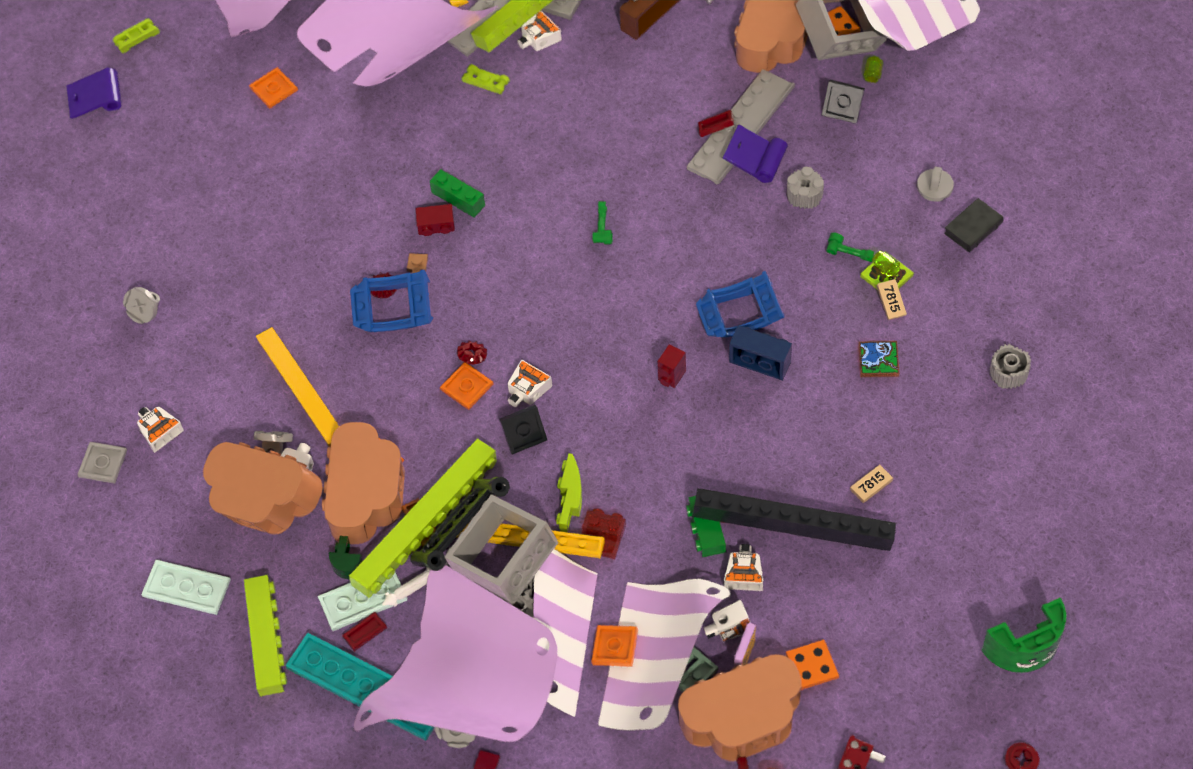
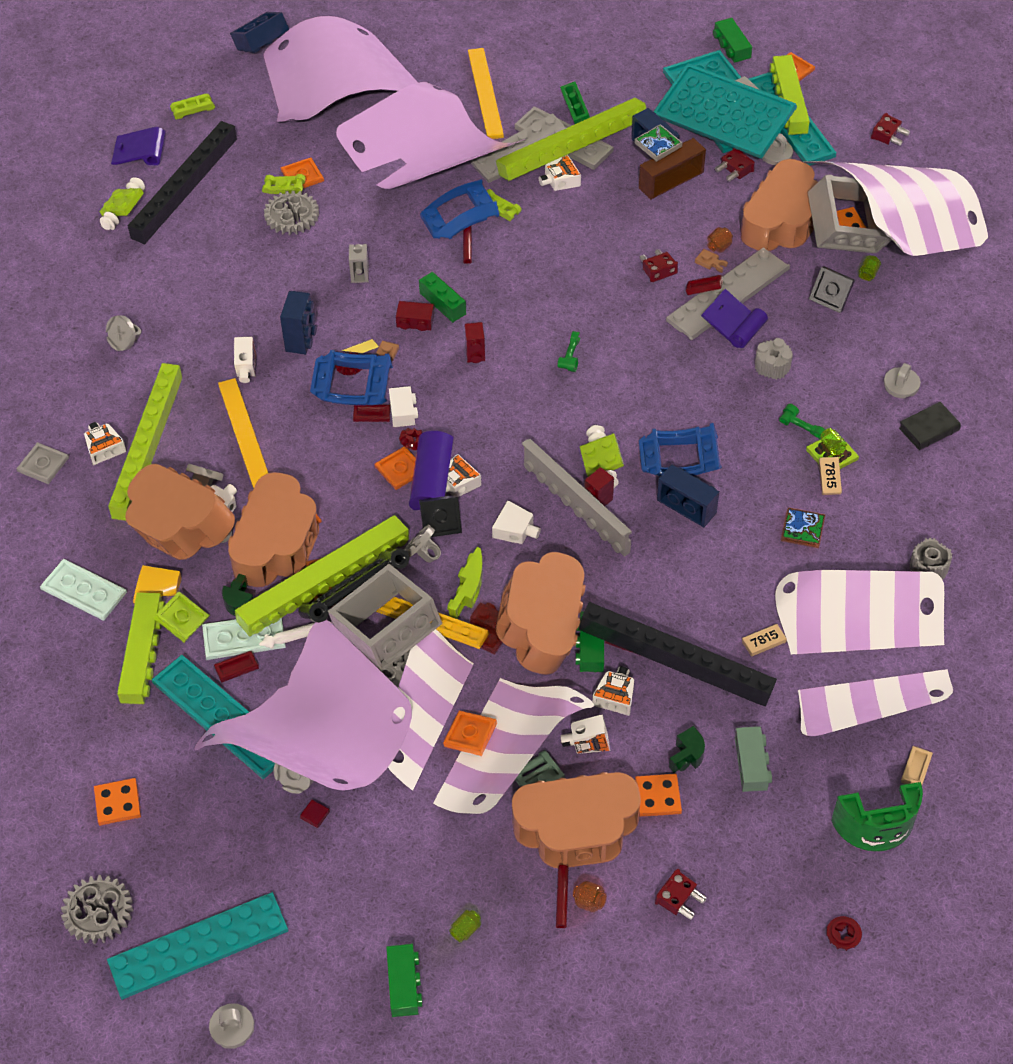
camera: 10 degrees right, 5 degrees down
(95, 160) = (121, 203): none -> lime plate
(152, 124) = (182, 182): none -> black brick
(201, 413) = (147, 435): none -> lime brick
(258, 104) = (283, 184): none -> lime plate
(259, 562) = (158, 581): none -> yellow slope
(269, 141) = (282, 218): none -> light grey gear
(277, 305) = (244, 363): none -> white torso
(295, 593) = (181, 617): none -> lime tile
(321, 255) = (298, 322): none -> dark blue brick
(361, 171) = (357, 261): none -> light grey brick
(392, 264) = (363, 347): none -> light yellow sticker
(421, 334) = (371, 413): none -> dark red tile
(450, 320) = (402, 406): none -> white brick
(465, 77) = (483, 208): none -> blue wedge
(466, 133) = (467, 245): none -> dark red piece
(500, 381) = (431, 467): none -> dark purple brick
(505, 236) = (474, 342): none -> dark red brick
(511, 463) = (422, 543): none -> light grey tile
(598, 420) = (514, 524): none -> white torso
(652, 378) = (577, 497): none -> light grey plate
(652, 506) = (542, 611): none -> nougat brick
(662, 326) = (601, 452): none -> lime plate
(665, 112) = (659, 266): none -> dark red piece
(713, 93) = (708, 260): none -> medium nougat plate
(718, 70) = (719, 239): none -> clear orange head
(745, 646) = (597, 759): lavender tile -> none
(833, 613) = (691, 750): none -> dark green brick
(892, 607) = (752, 759): none -> sand green brick
(959, 435) = (862, 613): none -> piece
(1048, 578) = (916, 766): none -> tan tile

